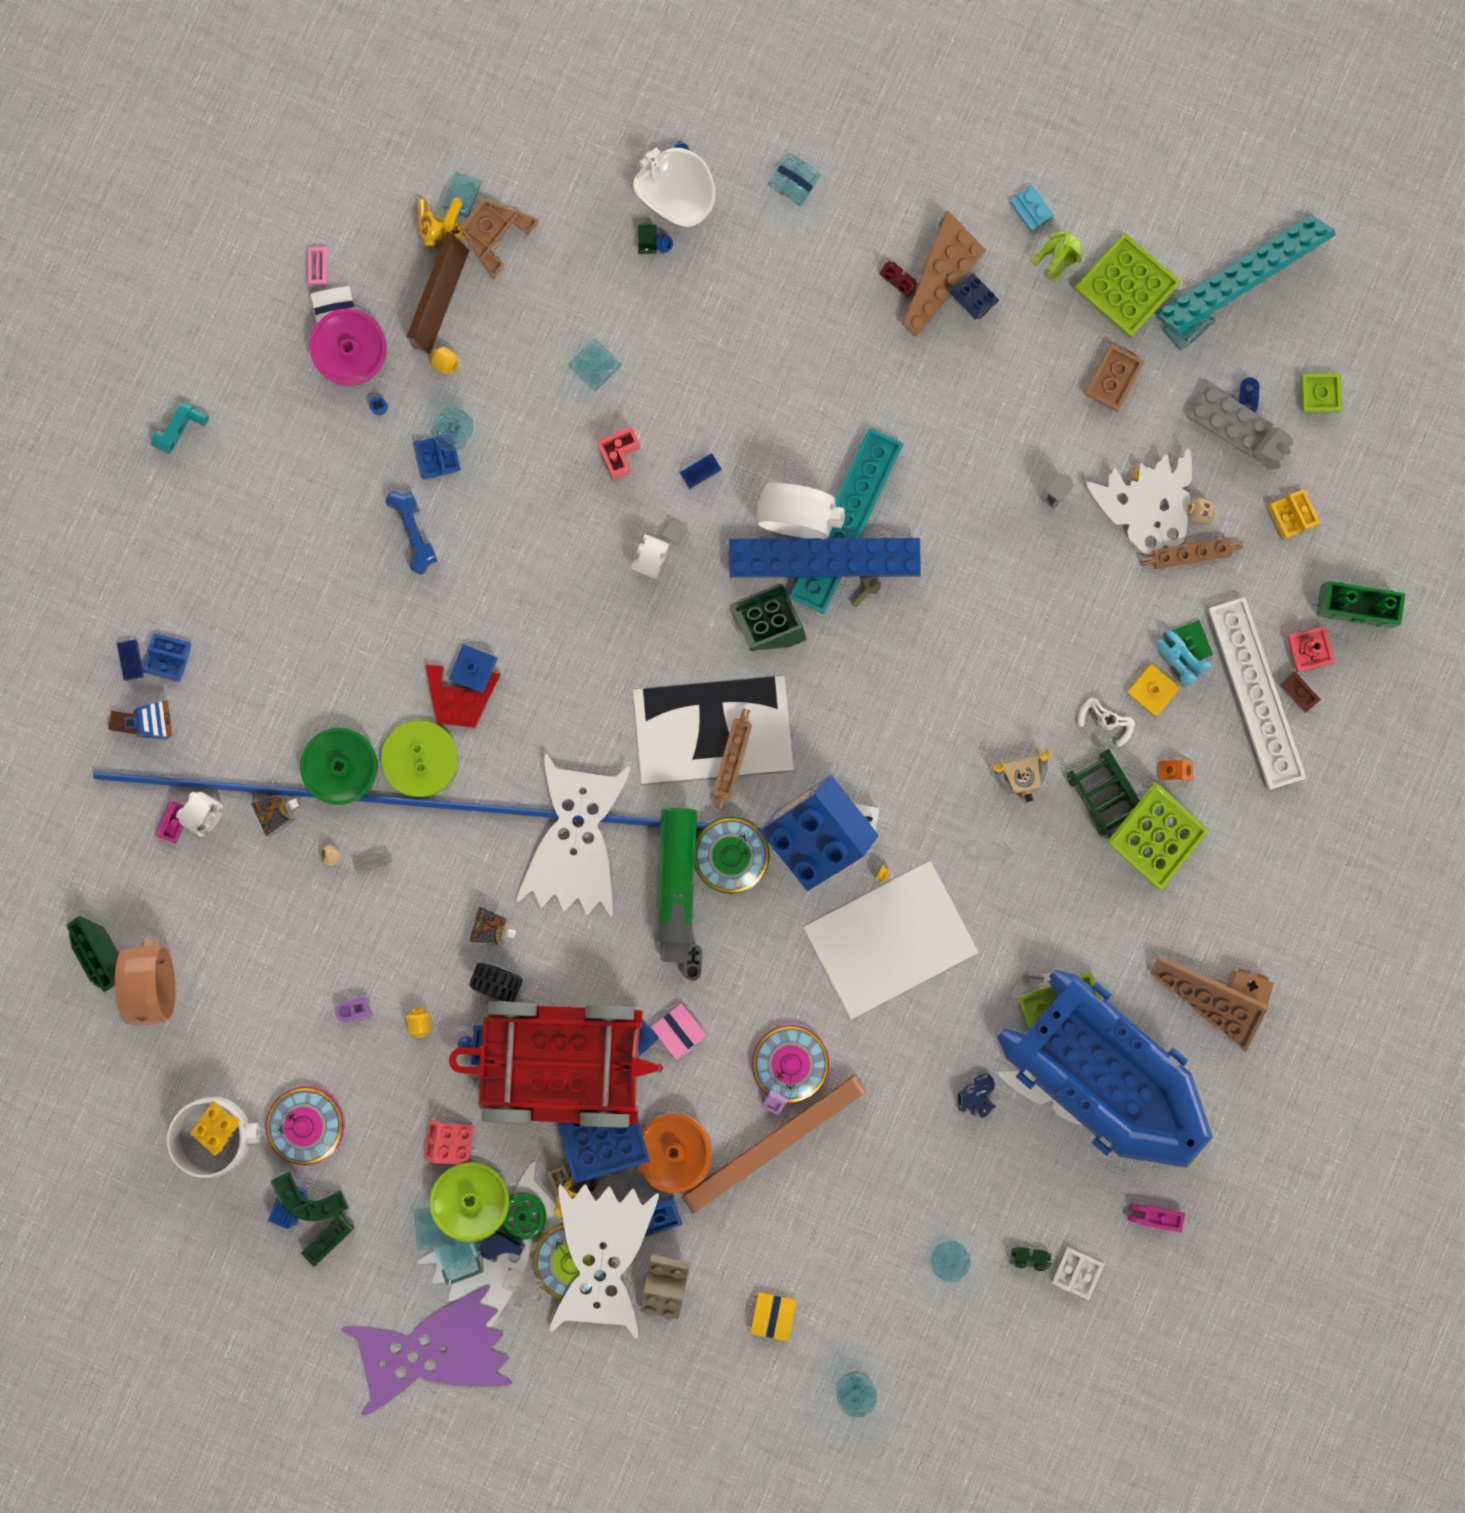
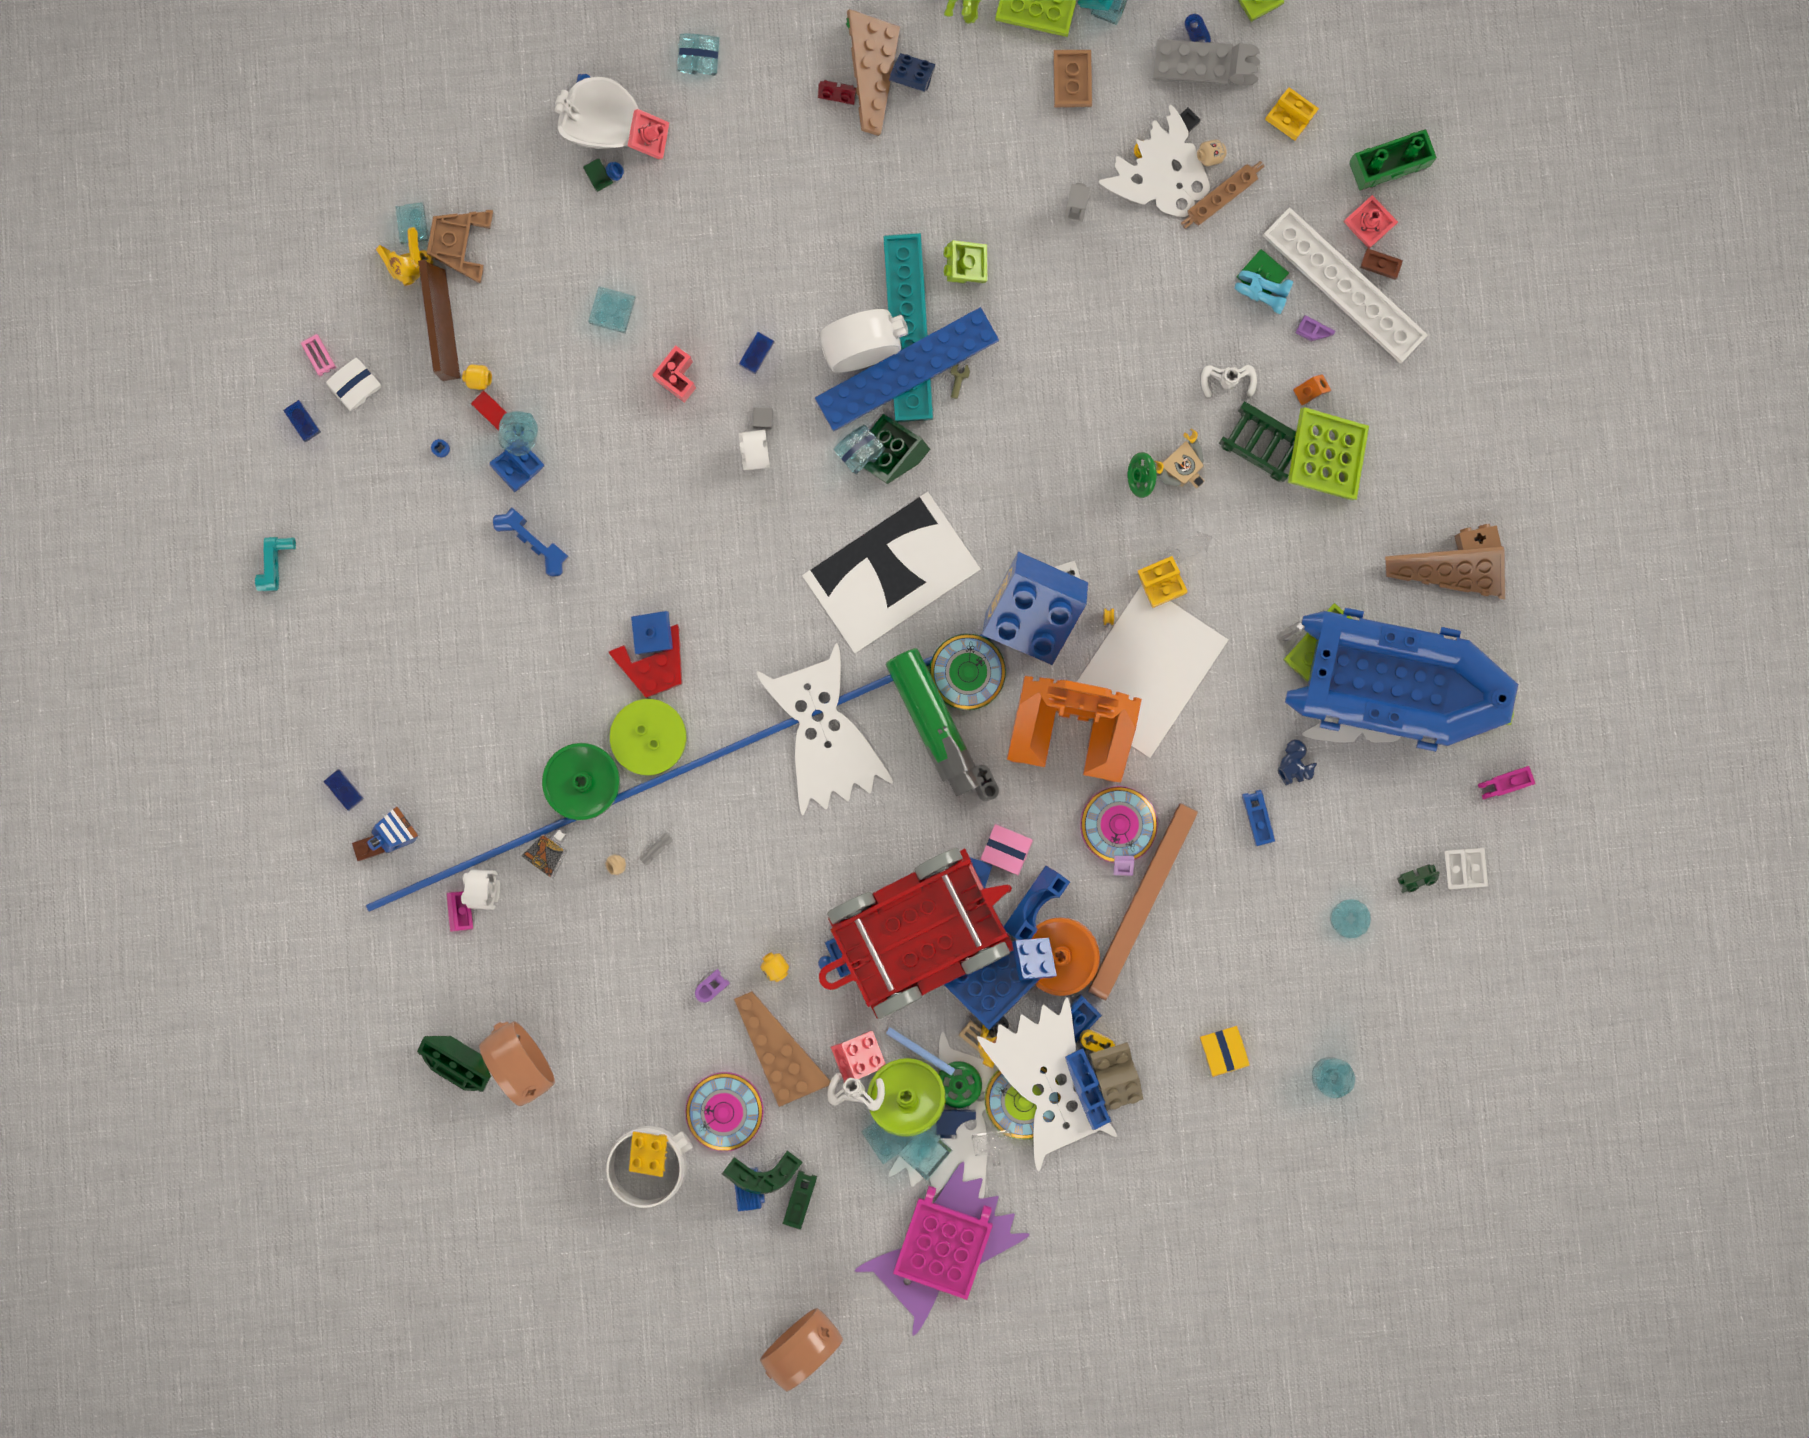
camera: 25 degrees left, 0 degrees up
(166, 657) = (374, 770): blue slope -> none
(255, 1376) = (801, 1349): none -> nougat cylinder
(271, 316) = (302, 421): none -> clear blue plate
(348, 347) = (385, 410): dark pink dish -> none
(381, 1107) = (784, 1061): none -> medium nougat wing
(426, 1172) = (855, 1091): none -> white piece
(430, 1352) = (943, 1247): none -> dark pink plate
(439, 394) = (489, 408): none -> red slope
(491, 928) = (793, 849): torso -> none
(495, 982) = (823, 893): black tyre -> none
(505, 1168) = (920, 1051): none -> light blue bar
(632, 1284) = (1087, 1089): none -> blue slope
(648, 1142) = (1034, 959): none -> plate
(657, 1103) = (1046, 887): none -> blue arch
(668, 1244) = (1099, 1038): none -> yellow beam
(714, 230) = (648, 134): none -> coral plate
(732, 758) = (922, 587): medium nougat plate -> none
(743, 605) = (859, 448): none -> clear light blue slope
(827, 977) = (1110, 733): none -> orange piece
(917, 1127) = (1258, 818): none -> blue plate
(929, 490) = (966, 262): none -> lime plate
(947, 869) = (1162, 581): none -> yellow slope
(981, 764) = (1140, 474): none -> green plate
(1153, 690) = (1254, 331): yellow plate -> none
(1199, 470) = (1190, 119): none -> black tile
(1206, 717) = (1313, 329): none -> medium lavender tile

